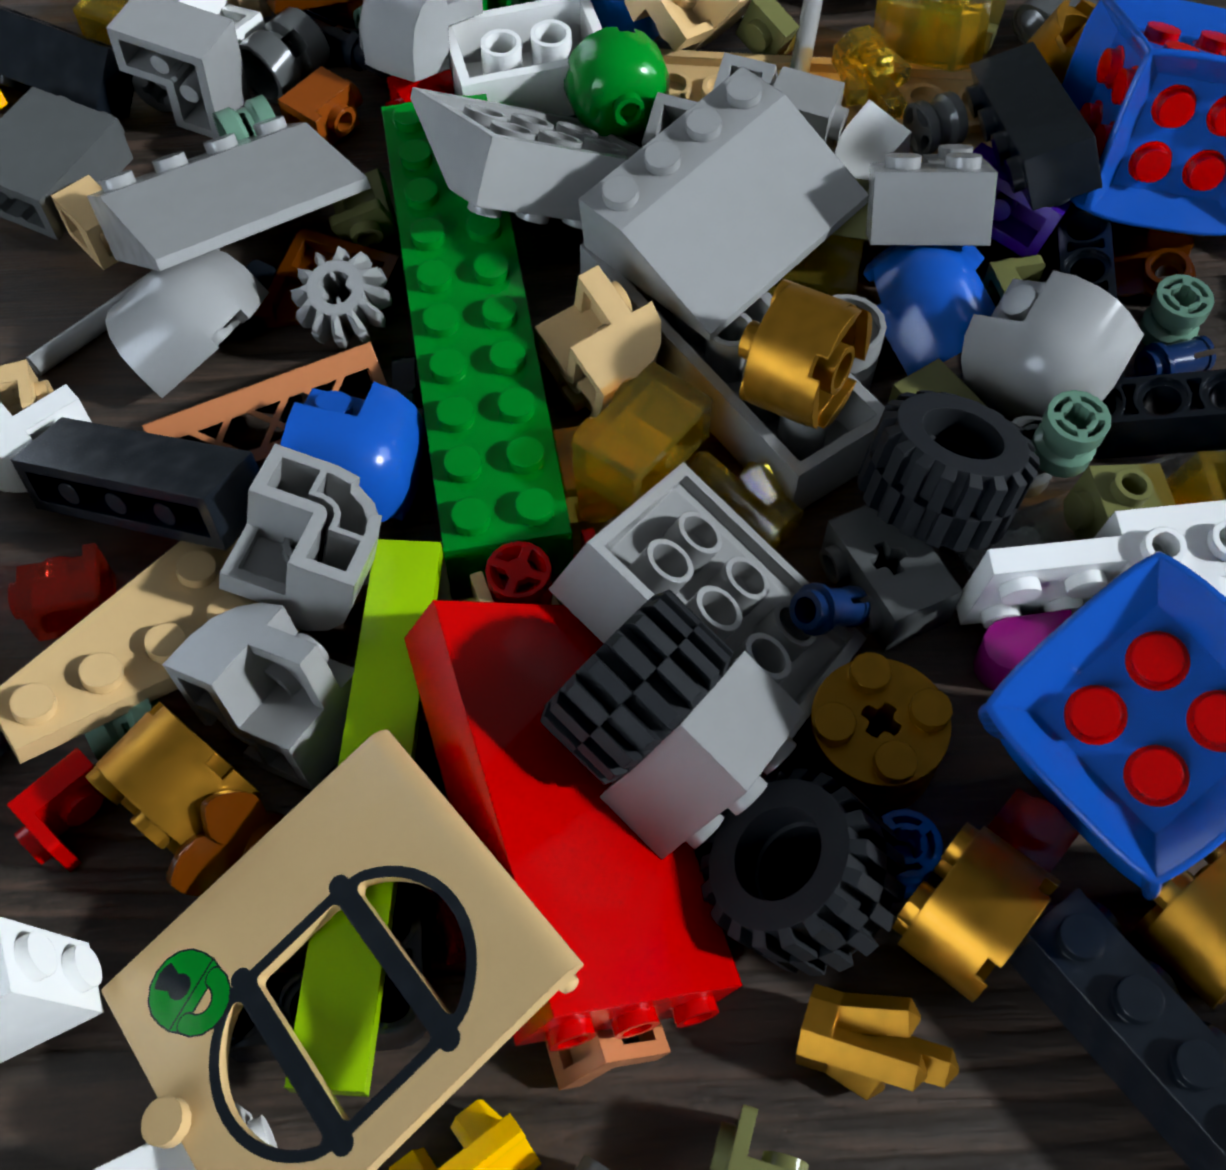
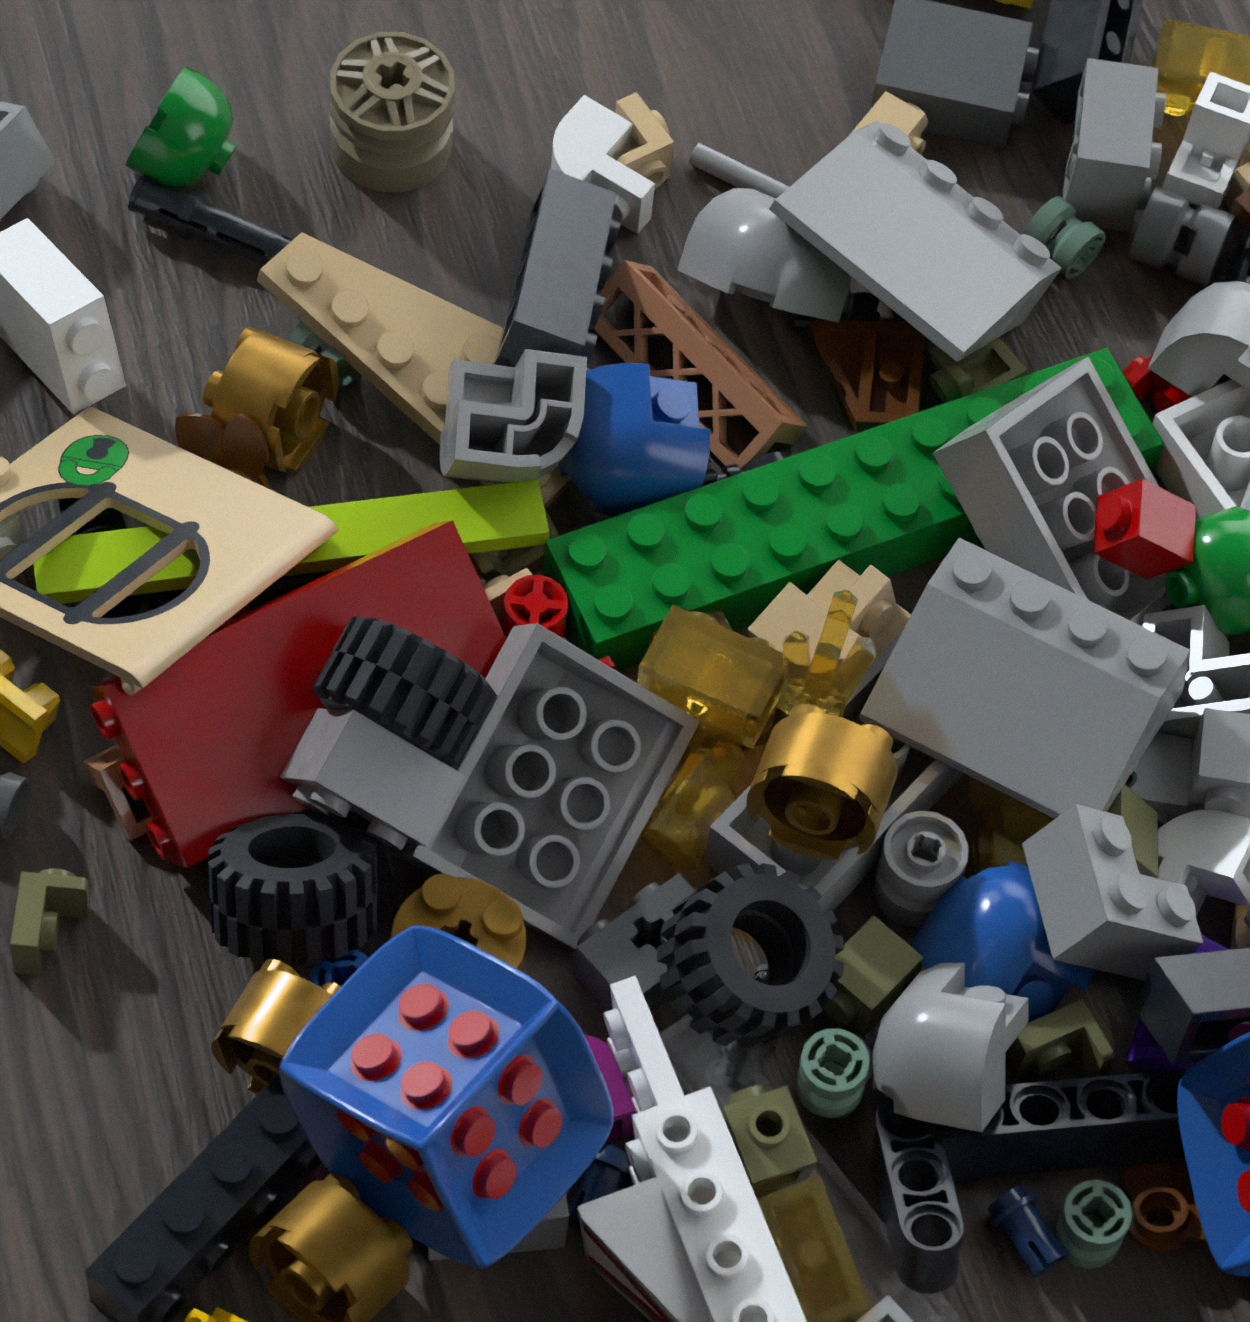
camera: 70 degrees right, 0 degrees up
(53, 805) = (225, 320): red bracket -> none
(60, 591) = (442, 261): clear red brick -> none
(267, 689) = (376, 434): light grey brick -> none
(324, 104) = (1114, 299): dark orange brick -> none
(335, 279) = (833, 383): light grey gear -> none
(581, 103) = (1144, 529): none -> red brick
(676, 326) = (818, 680): none -> clear yellow rock
(820, 609) = (574, 882): dark blue pin -> none
(870, 1043) = (164, 977): pearl gold rock -> none

